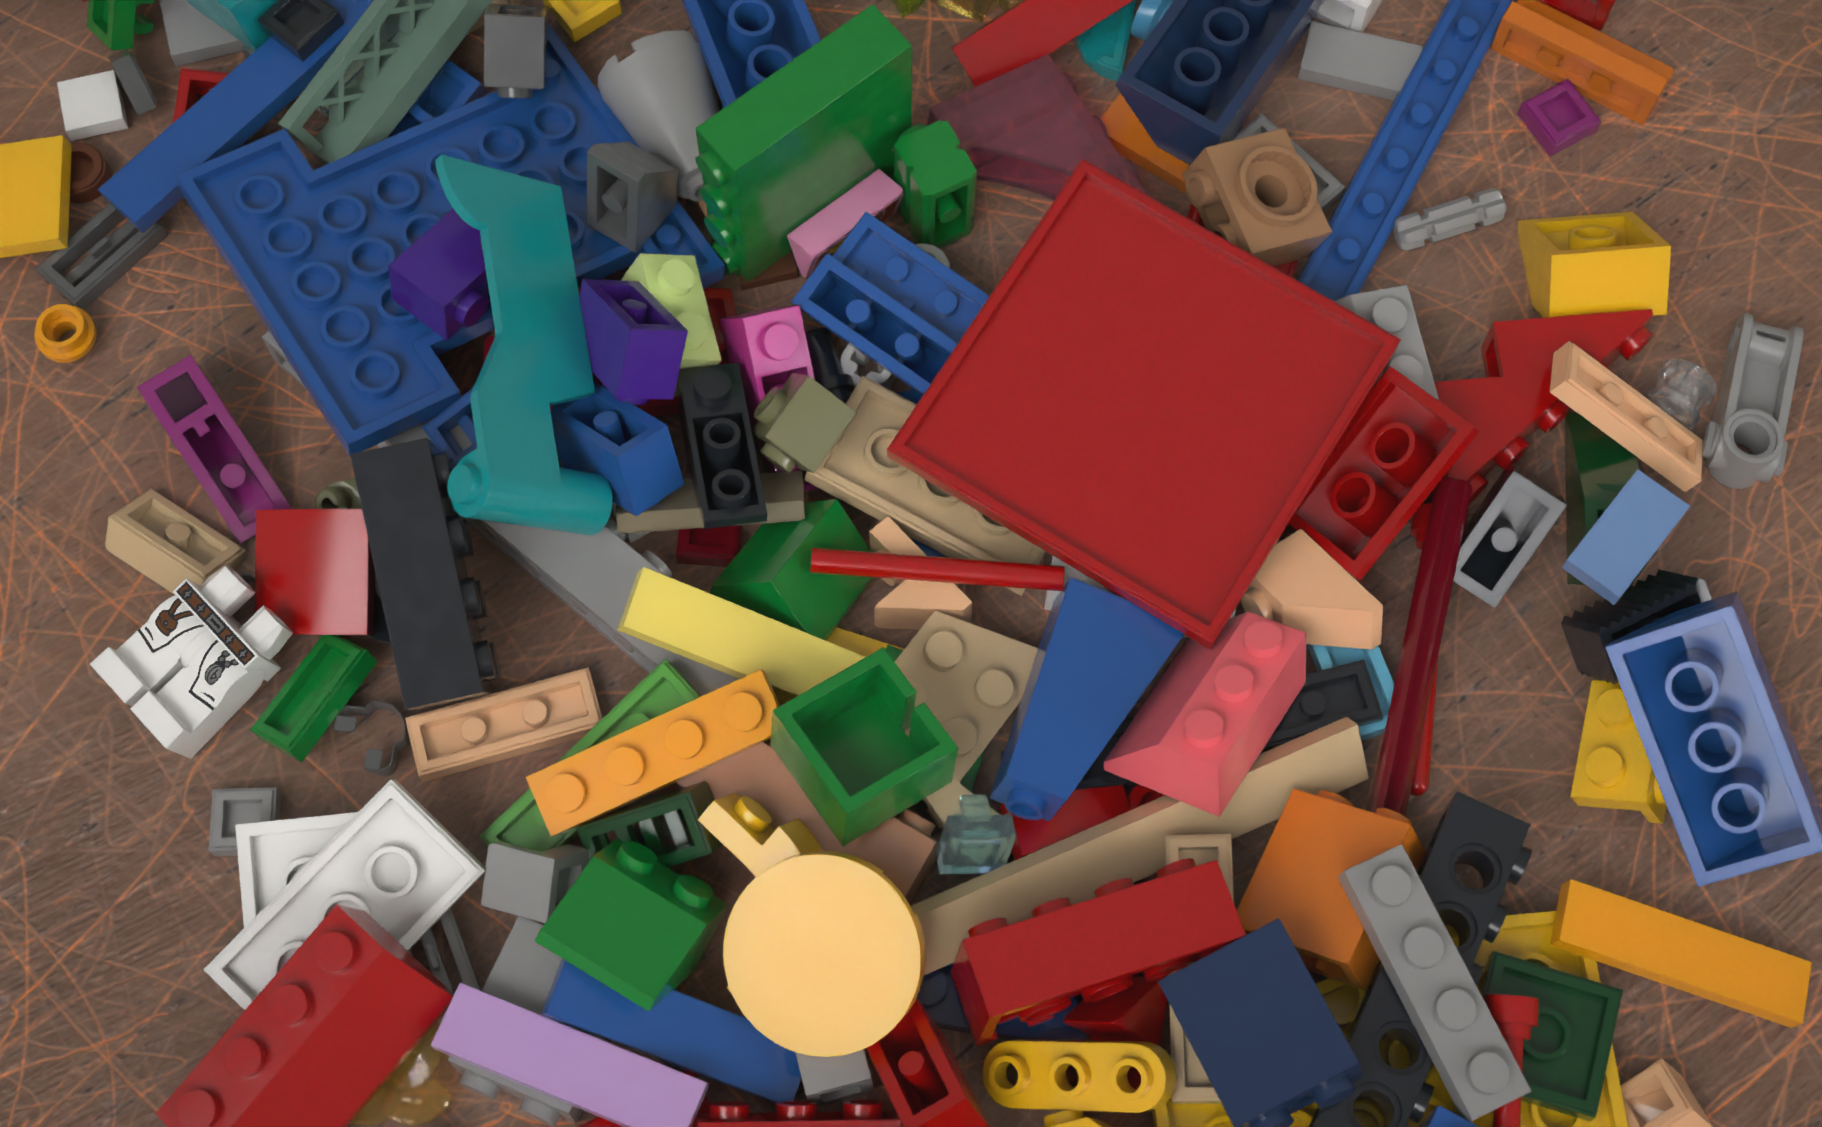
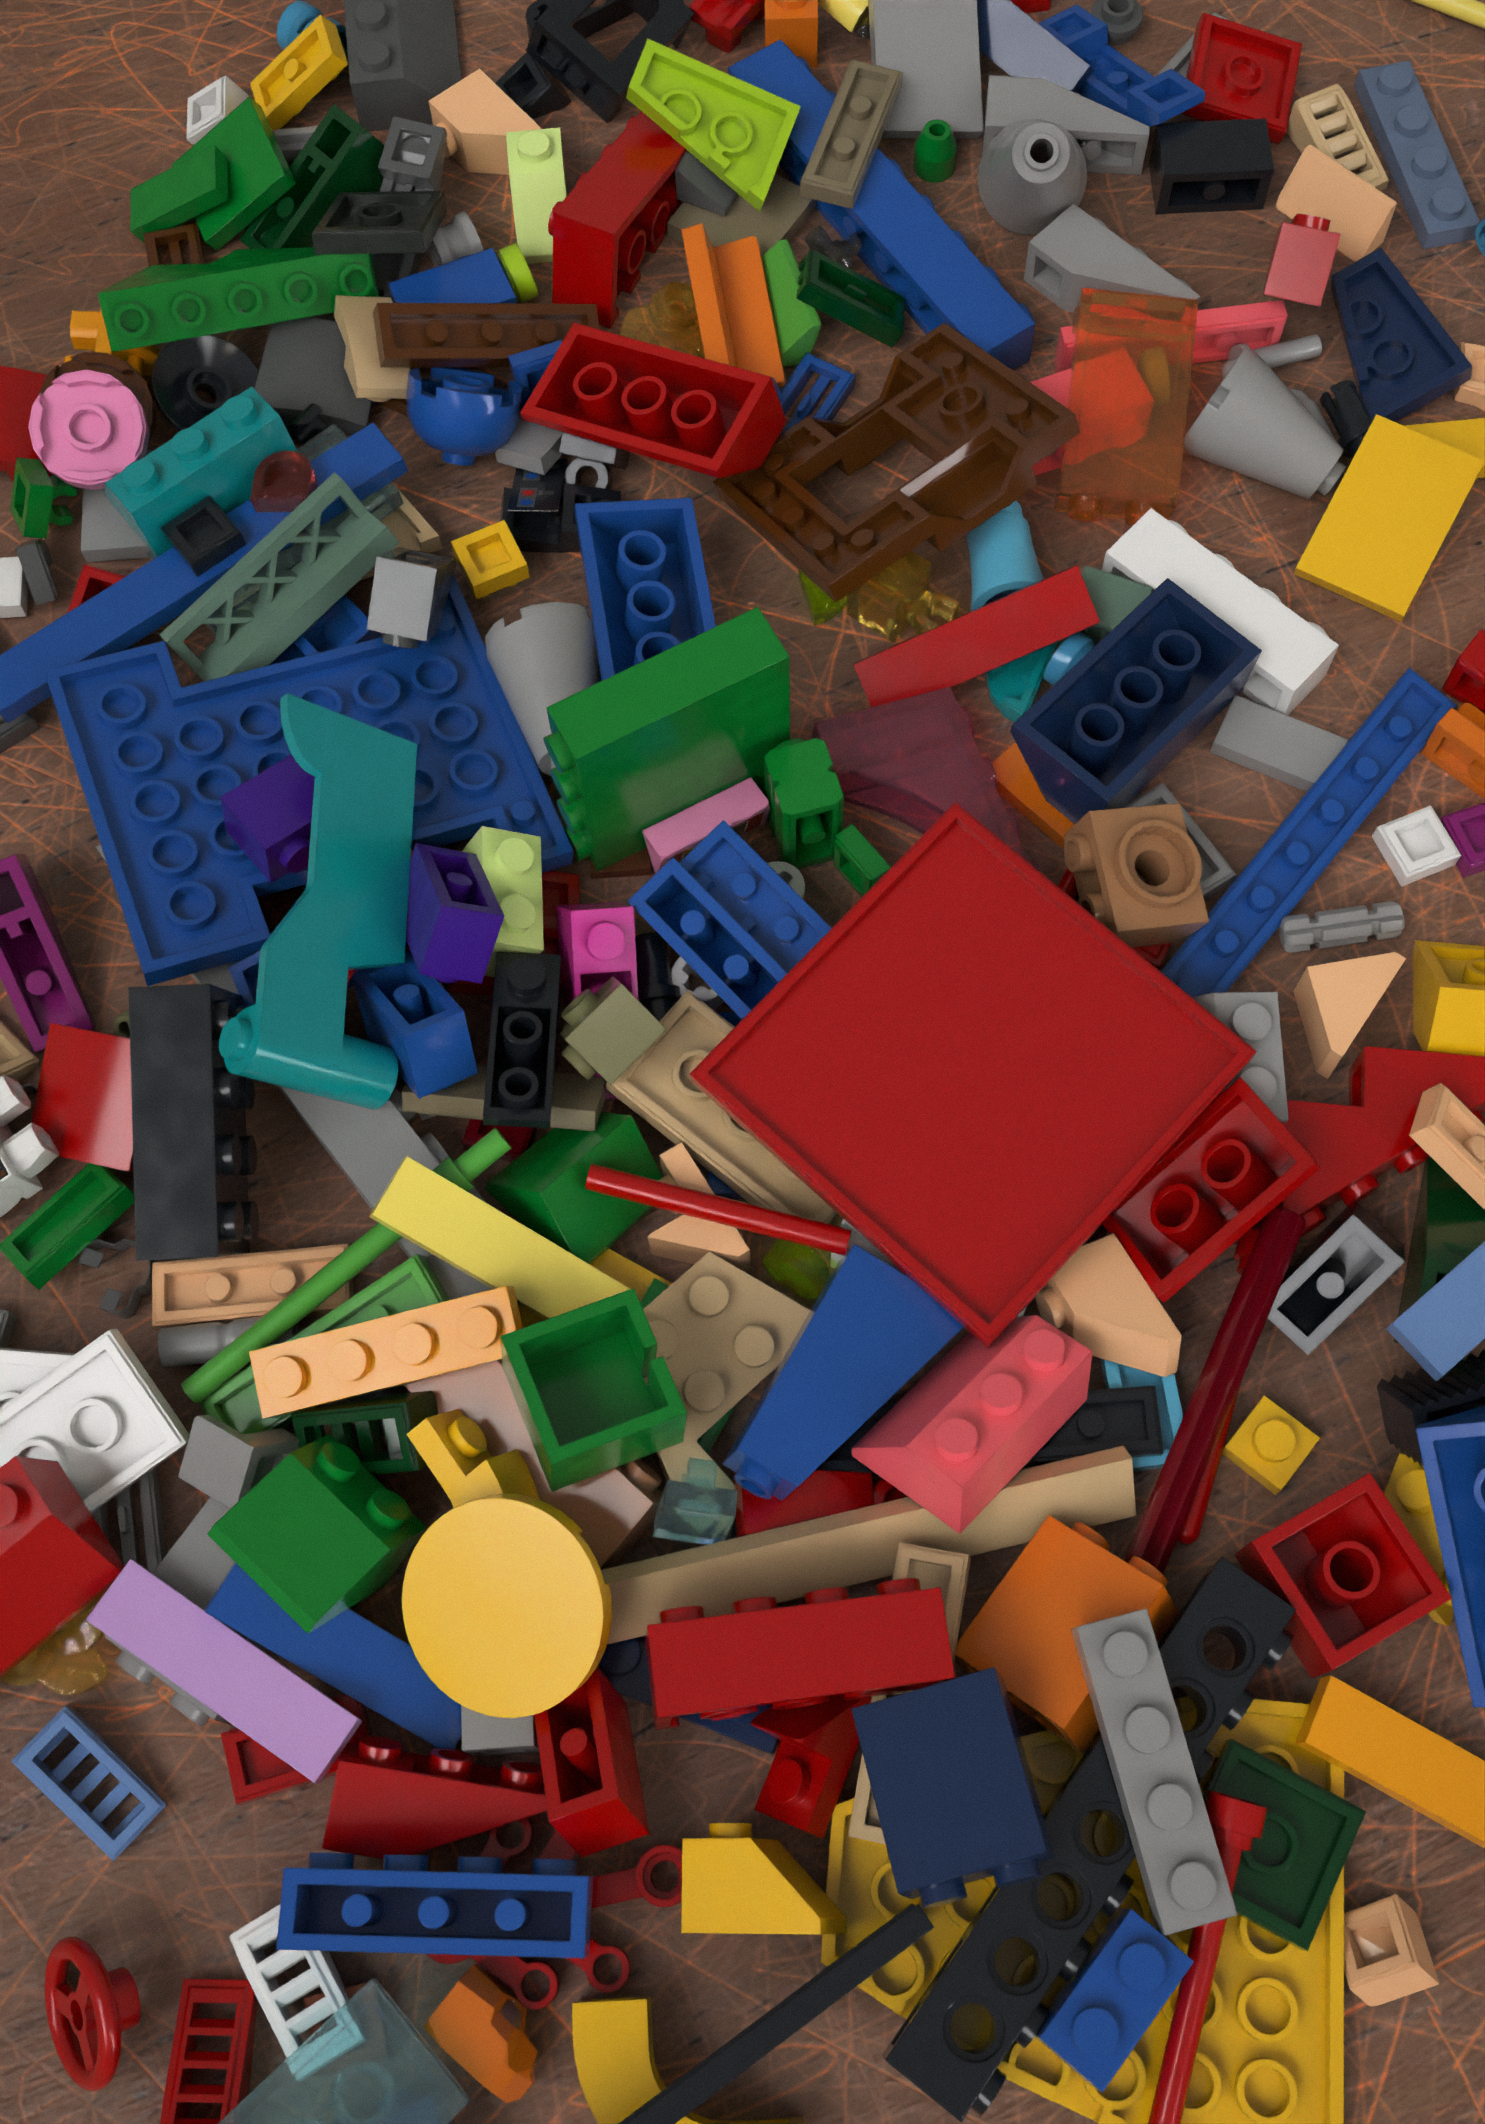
camera: 15 degrees right, 0 degrees up
(486, 778) = (203, 1341): none -> light grey piece
(585, 698) = (332, 1276): none -> bright green bar
(628, 192) = (486, 759): dark grey slope -> none
(996, 232) = (858, 860): none -> green tile
(1016, 614) = (797, 1268): none -> clear neon green tile
(1101, 1074) = (775, 1780): yellow plate -> none
(1460, 286) = (1338, 1000): none -> light nougat slope
(1475, 694) = (1270, 1445): none -> yellow plate
(1502, 134) = (1416, 846): none -> white tile
(1569, 787) = (1346, 1574): none -> red slope

